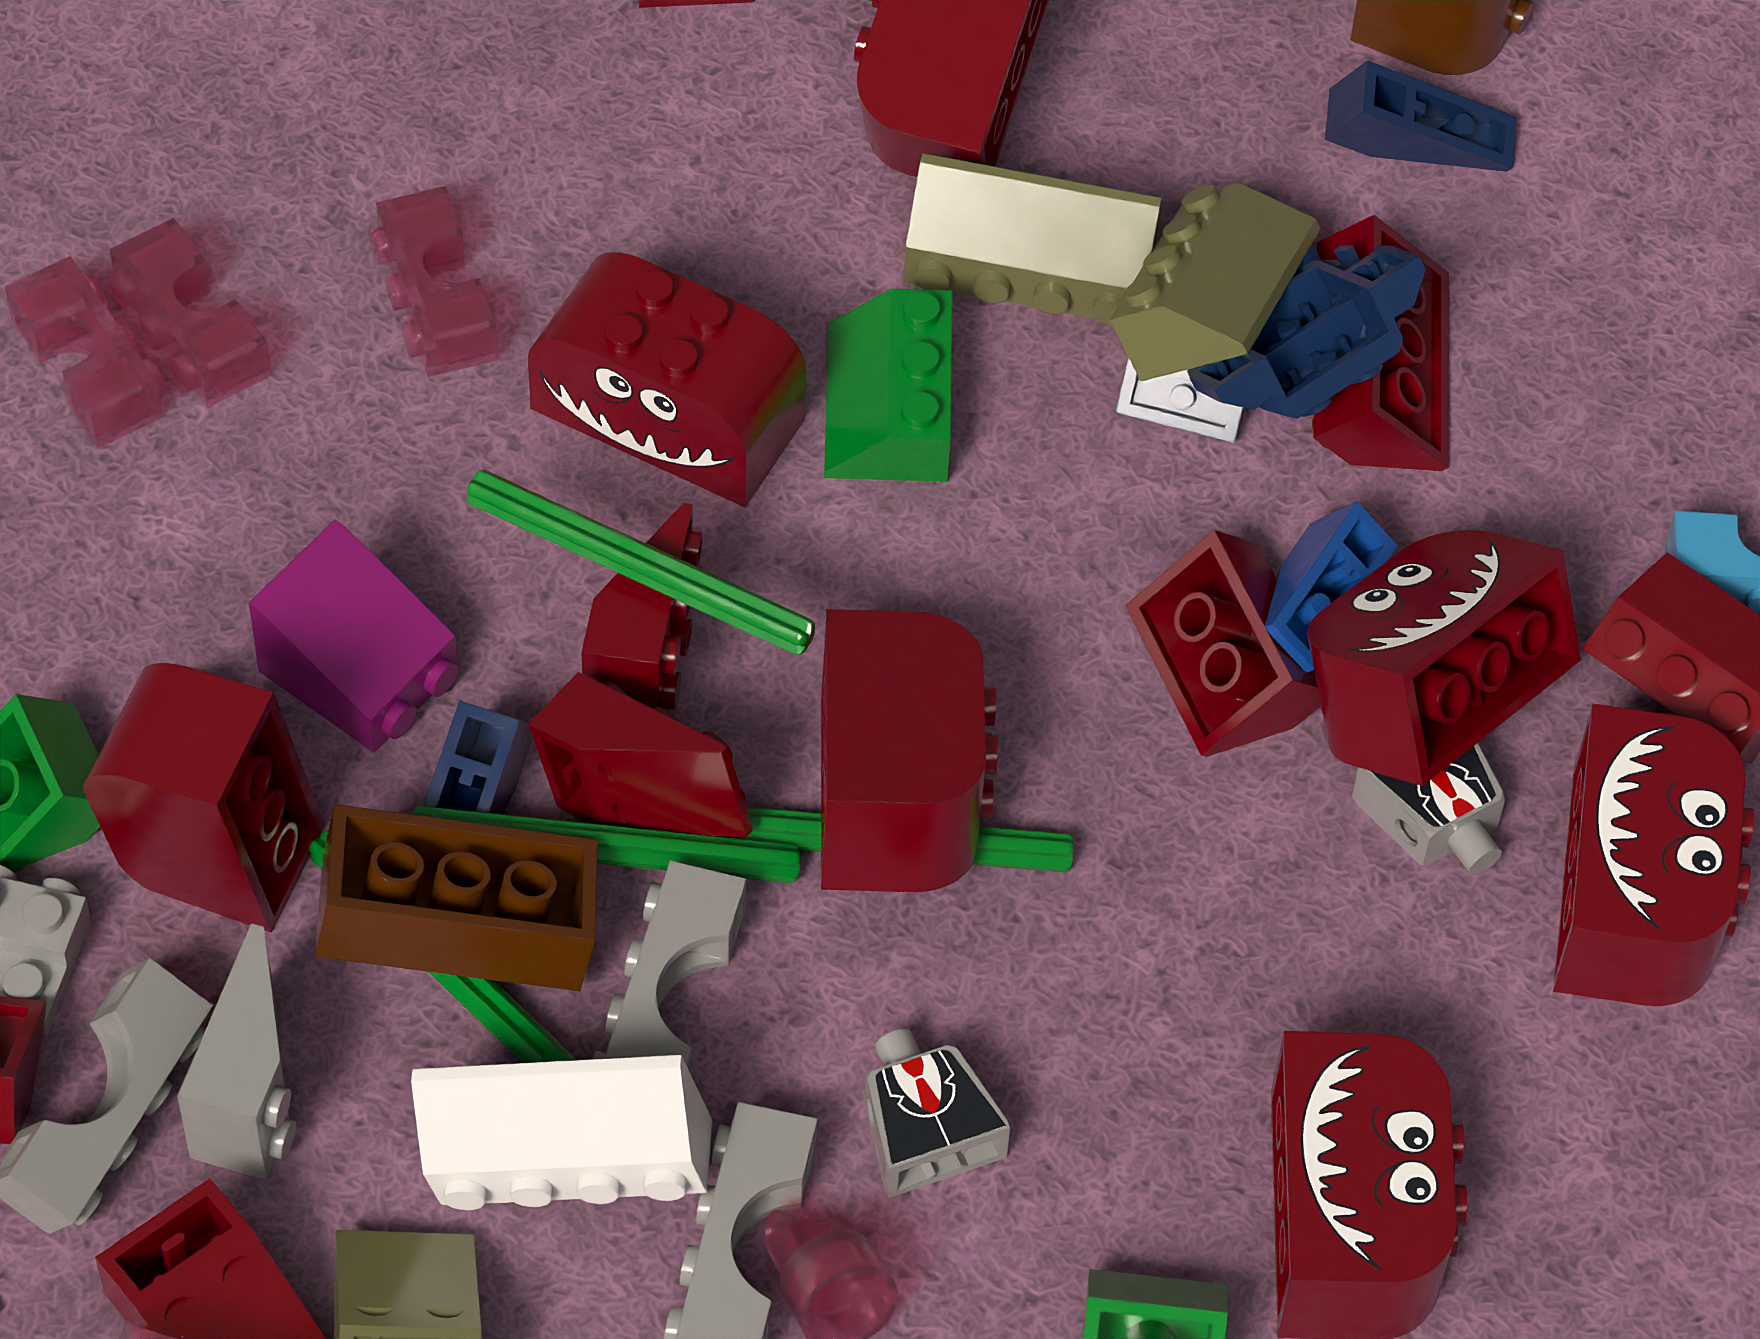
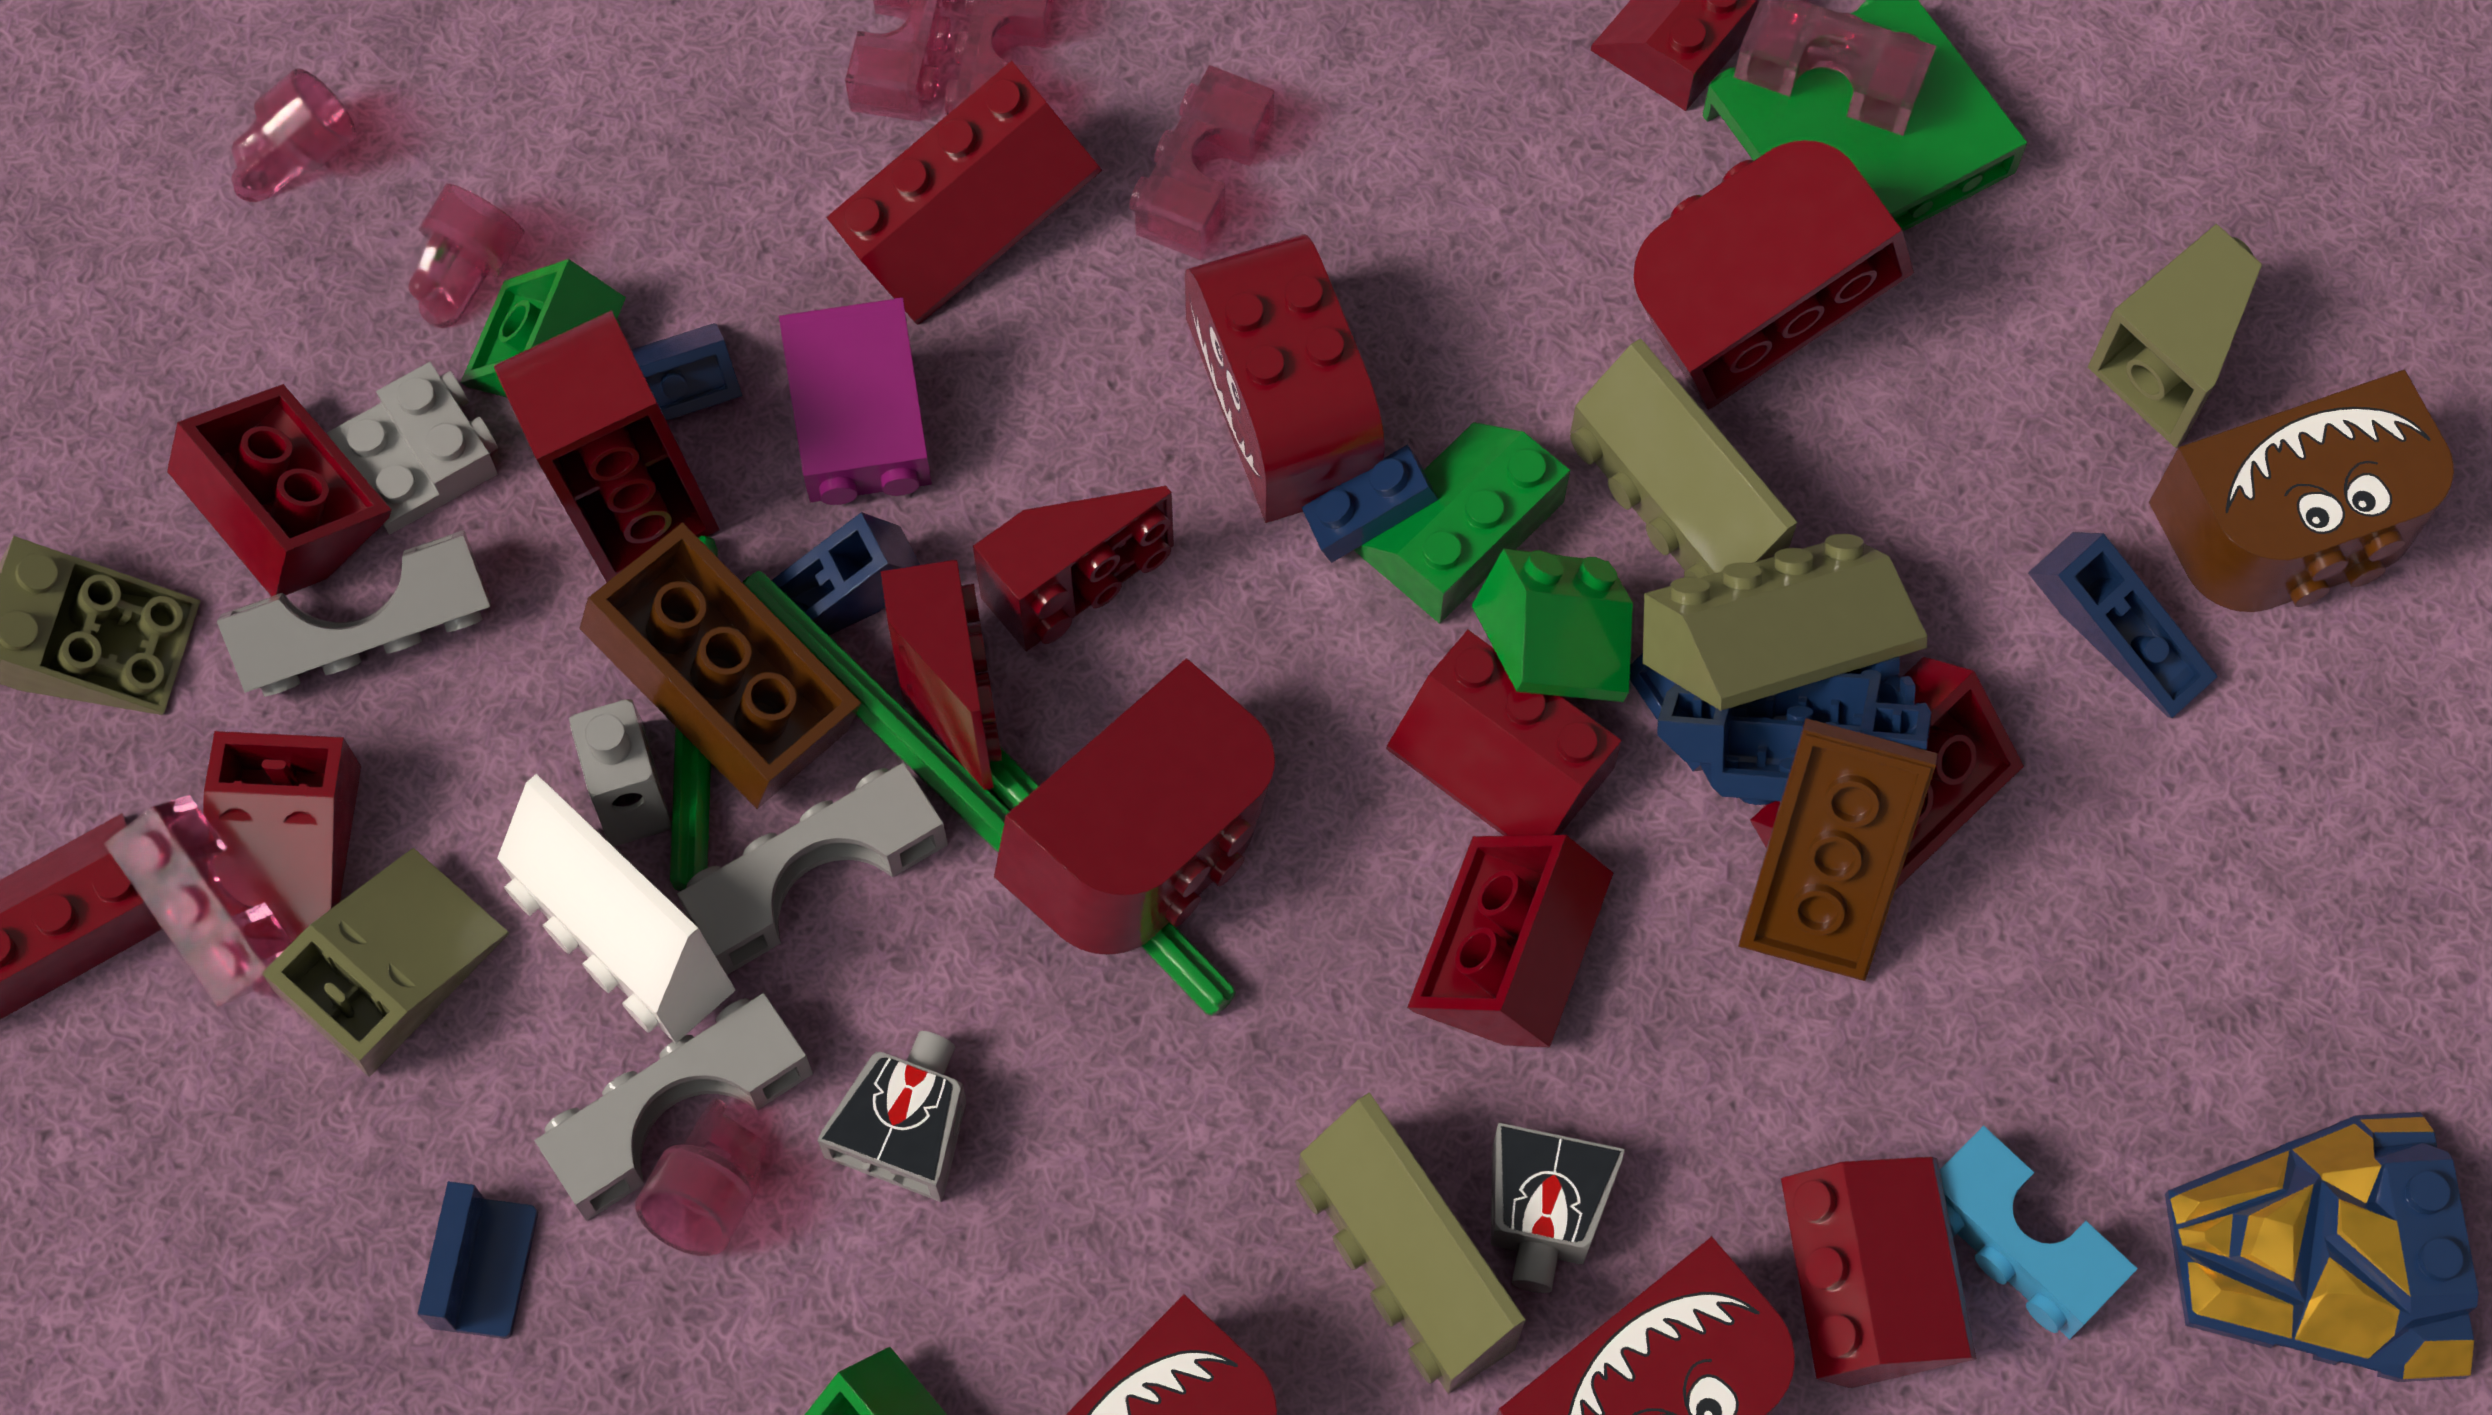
camera: 45 degrees right, 10 degrees up
(236, 1087) = (466, 666): light grey slope -> none
(281, 424) = (964, 193): none -> dark red slope
(441, 1027) = (620, 762): none -> light grey torso
(641, 562) = (1079, 511): green axle -> none
(820, 428) = (1369, 504): none -> dark blue plate
(1052, 398) = (1558, 624): none -> green slope
(1087, 518) = (1500, 752): none -> dark red slope
(1319, 569) = (1619, 951): blue slope -> none
(1383, 892) = (1408, 1246): none -> olive slope
(1408, 396) = (1837, 849): none -> reddish brown tile
(1440, 650) = (1641, 1084): dark red brick -> none

